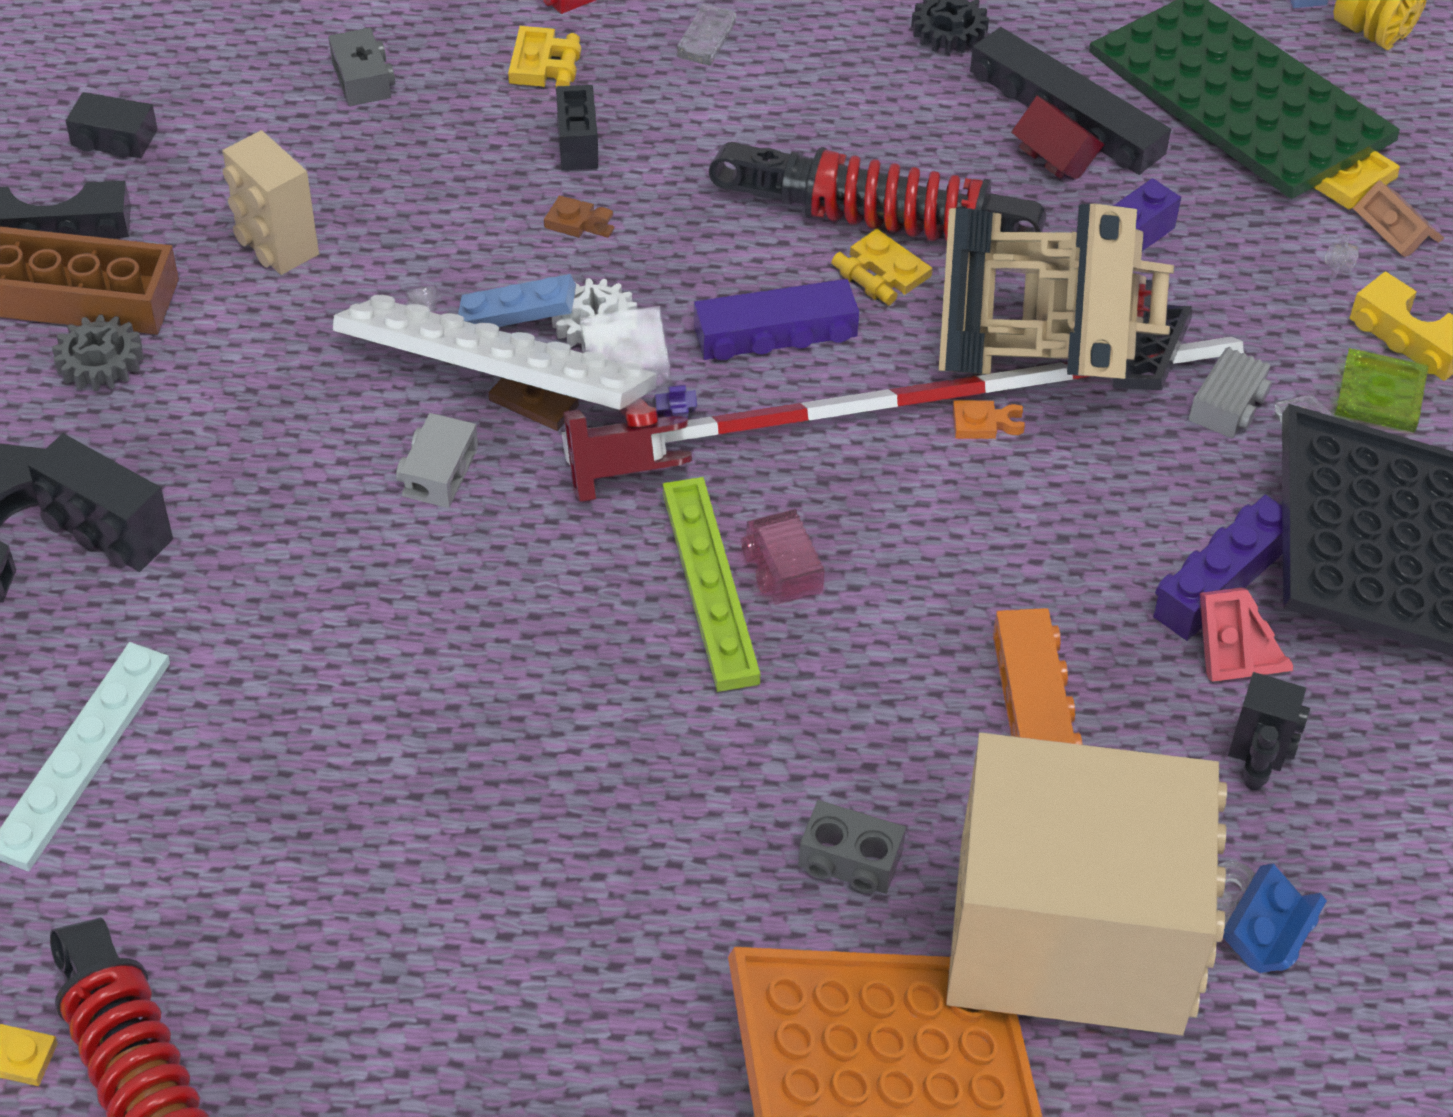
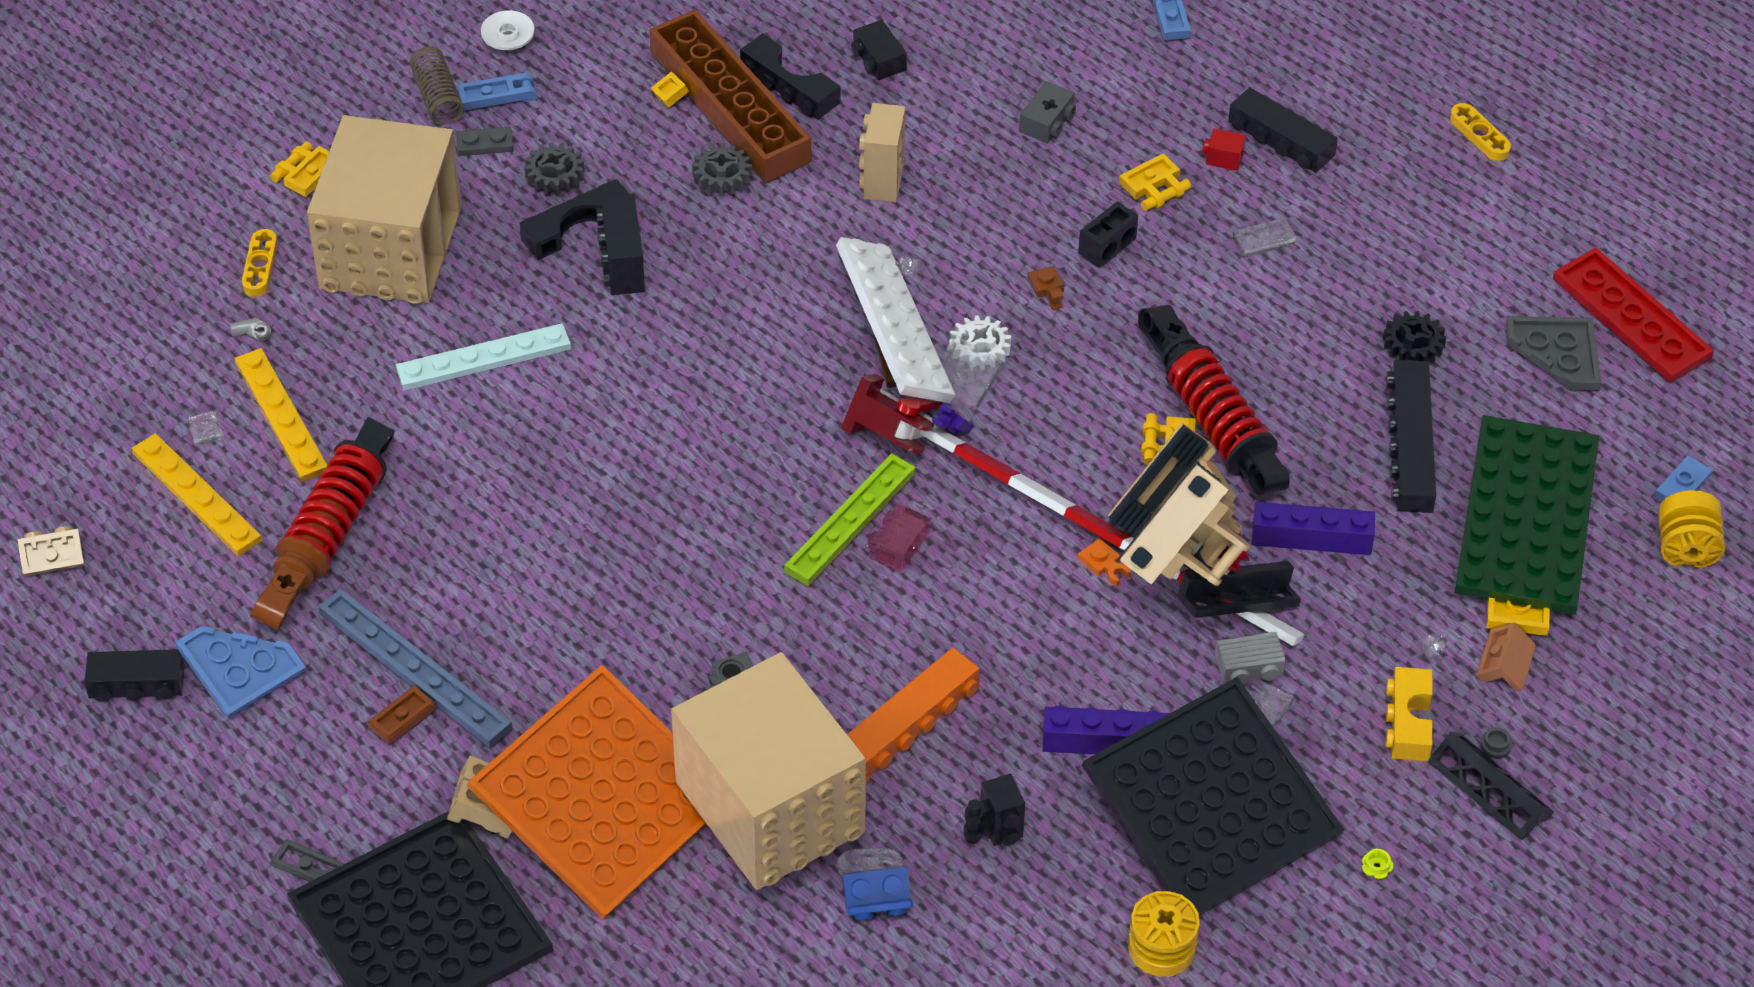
camera: 50 degrees right, 0 degrees up
(438, 460) = (804, 353): light grey brick -> none
(520, 302) = (946, 304): medium blue plate -> none
(776, 319) = (1067, 421): dark purple brick -> none
(1057, 139) = (1366, 449): dark red brick -> none
(1238, 637) = (1056, 766): coral wing -> none
(1382, 390) = (1340, 729): clear neon green plate -> none

